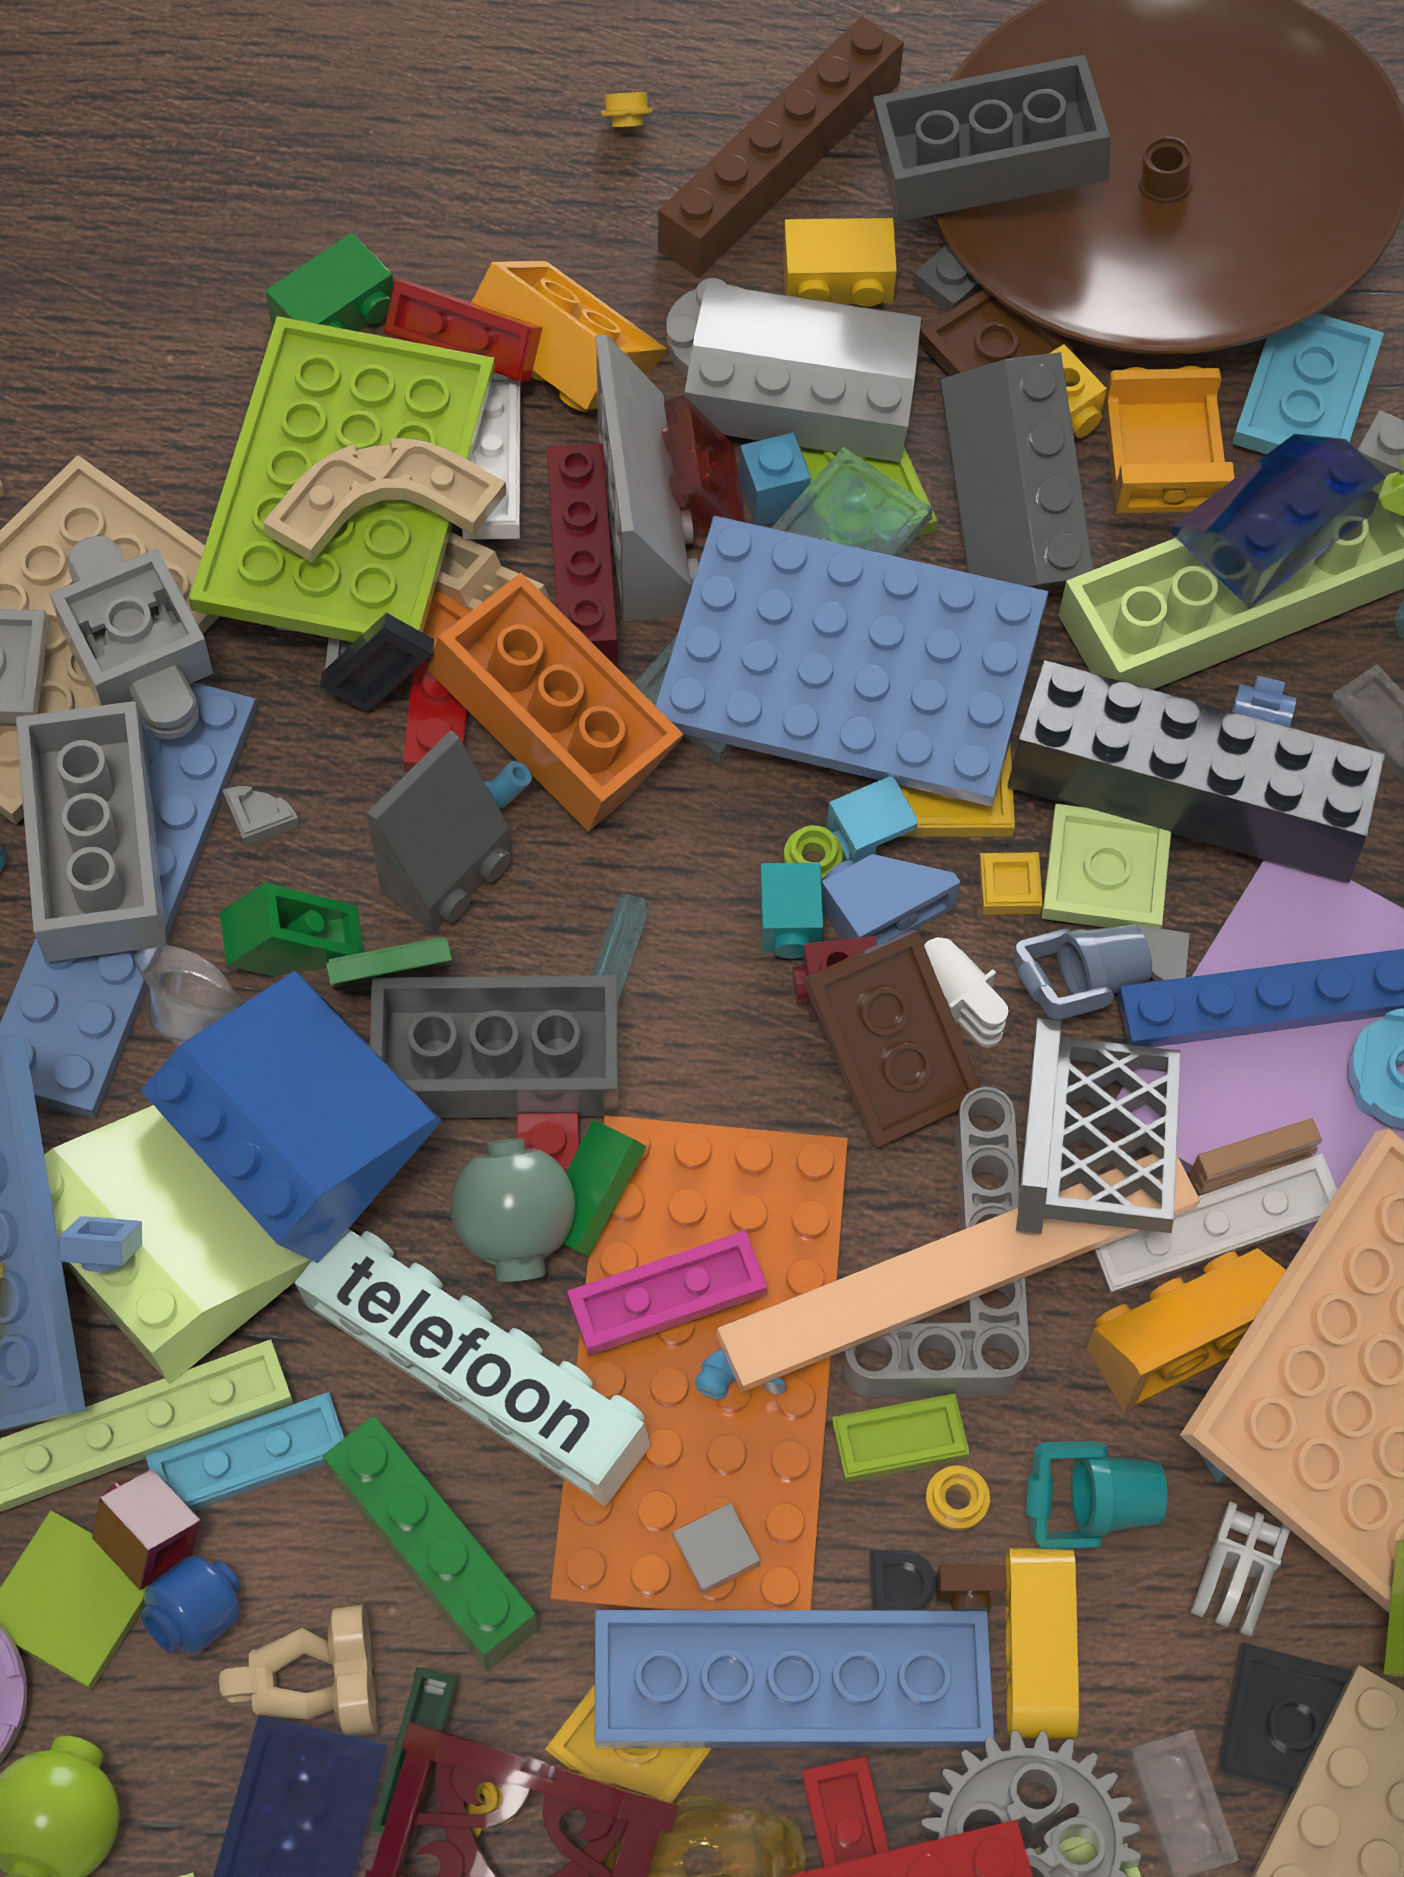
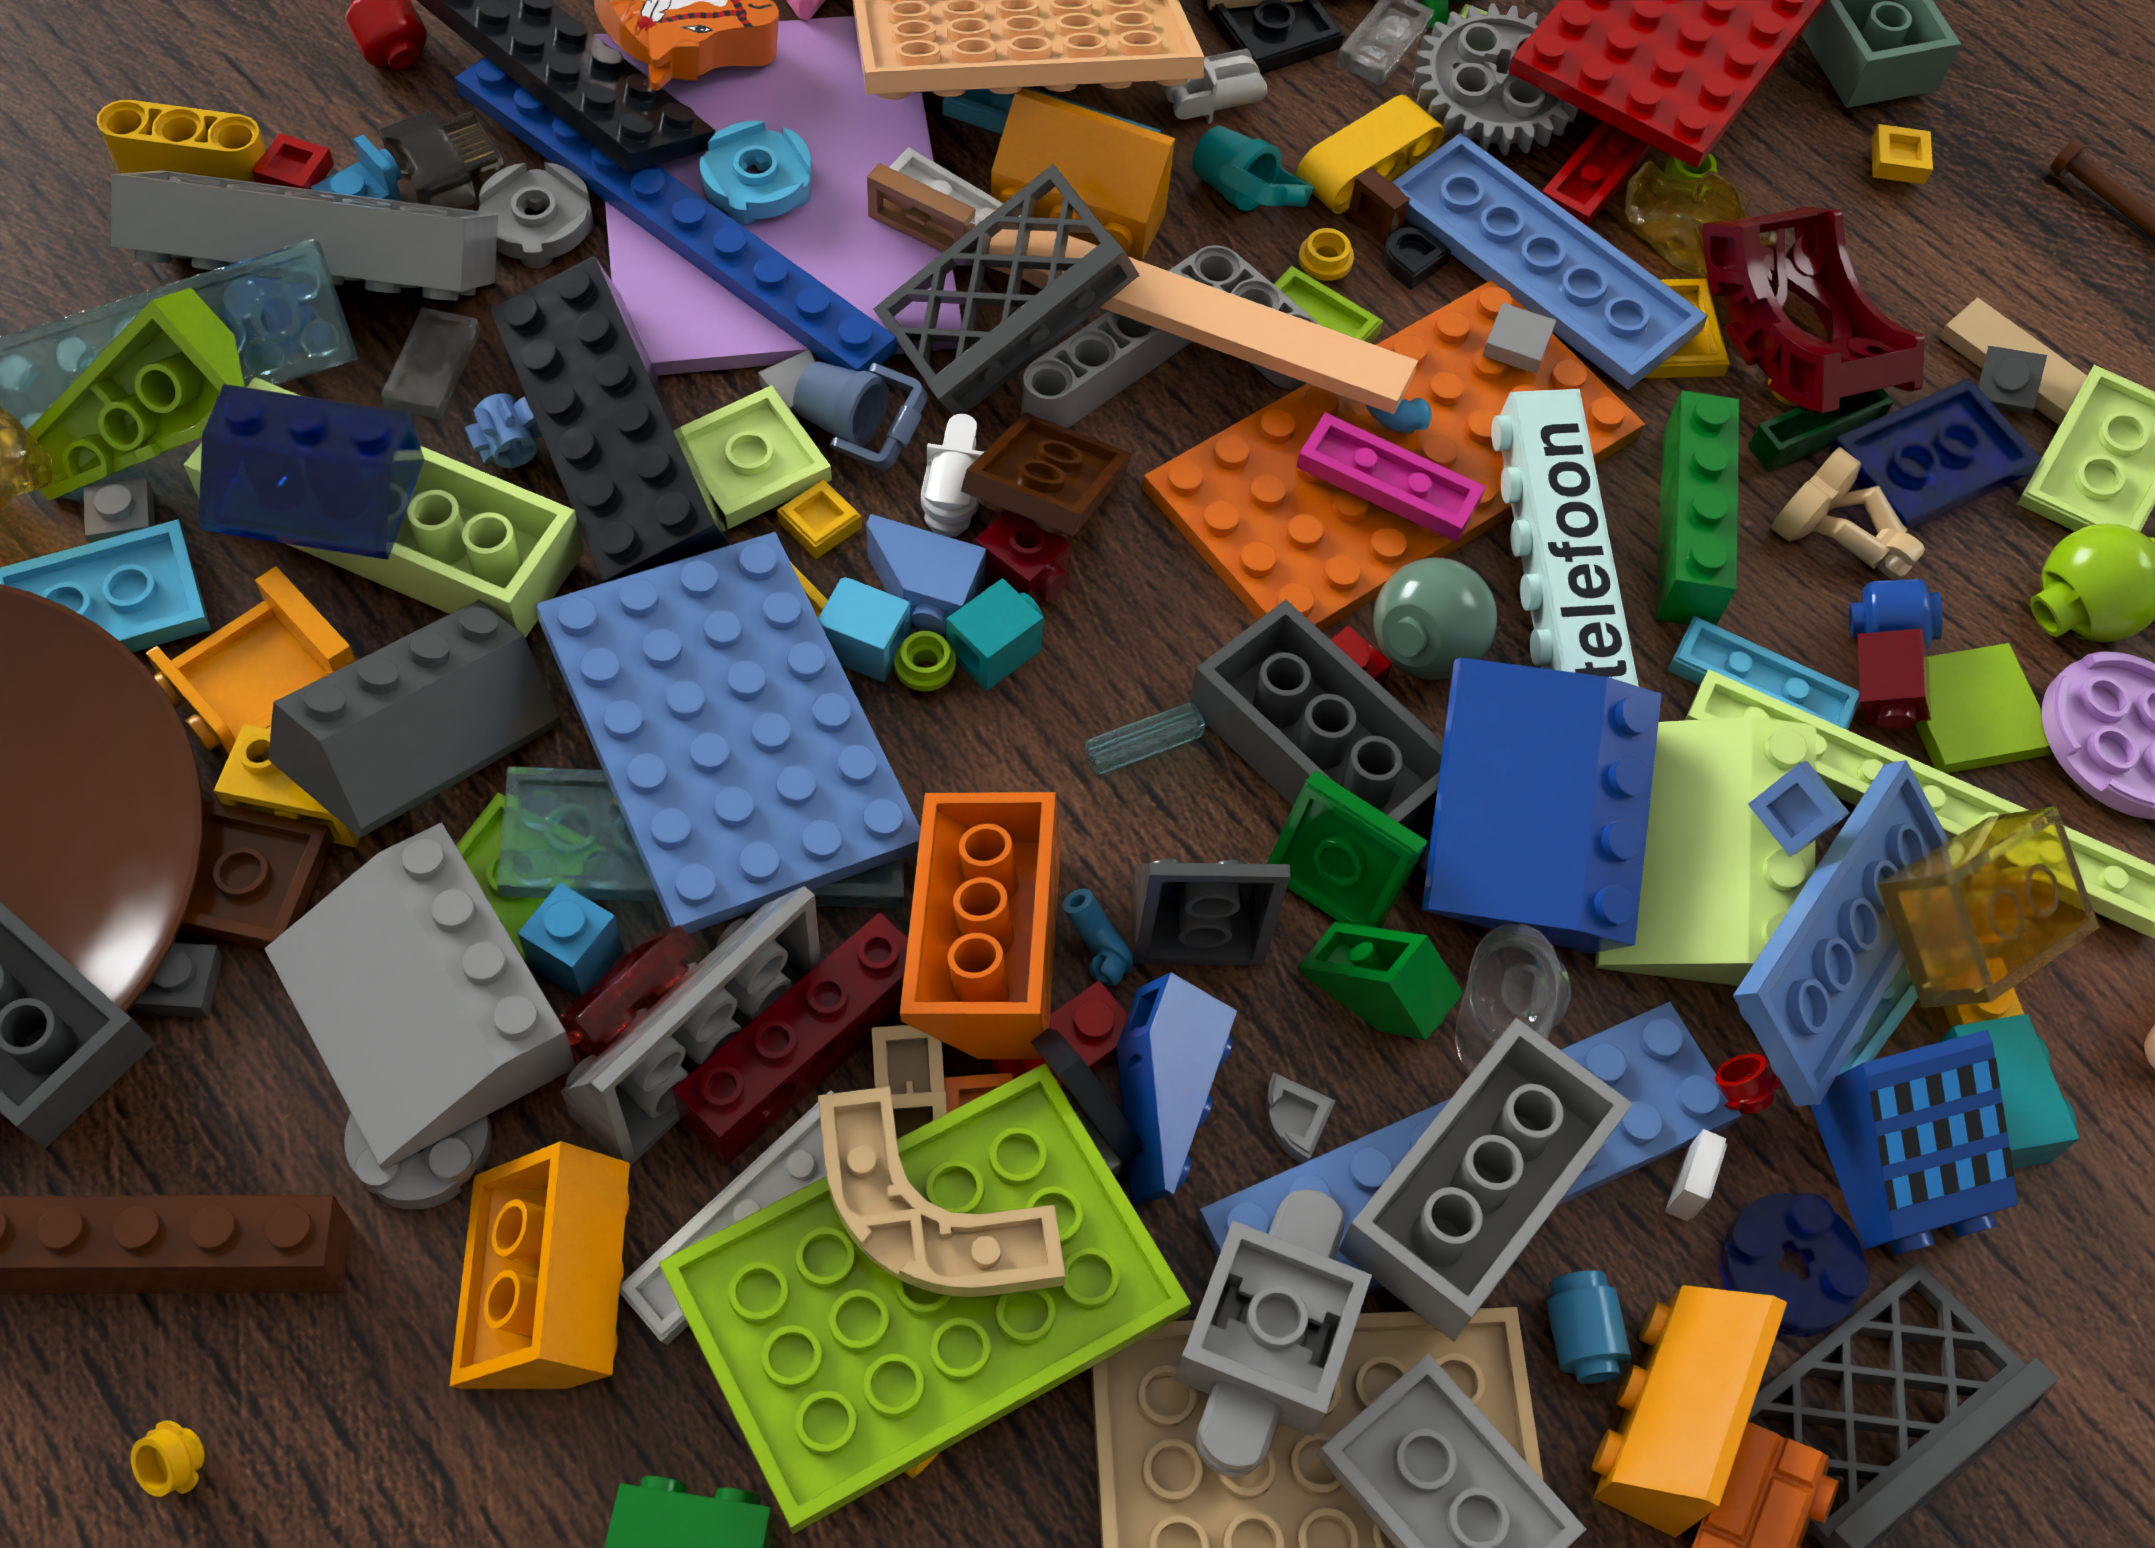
camera: 135 degrees left, 5 degrees down
(355, 746) = (1166, 1069): none -> slope
(455, 324) = (628, 1362): red tile -> none
(598, 1180) = (1342, 590): green tile -> none
(840, 260) = (243, 1078): yellow brick -> none

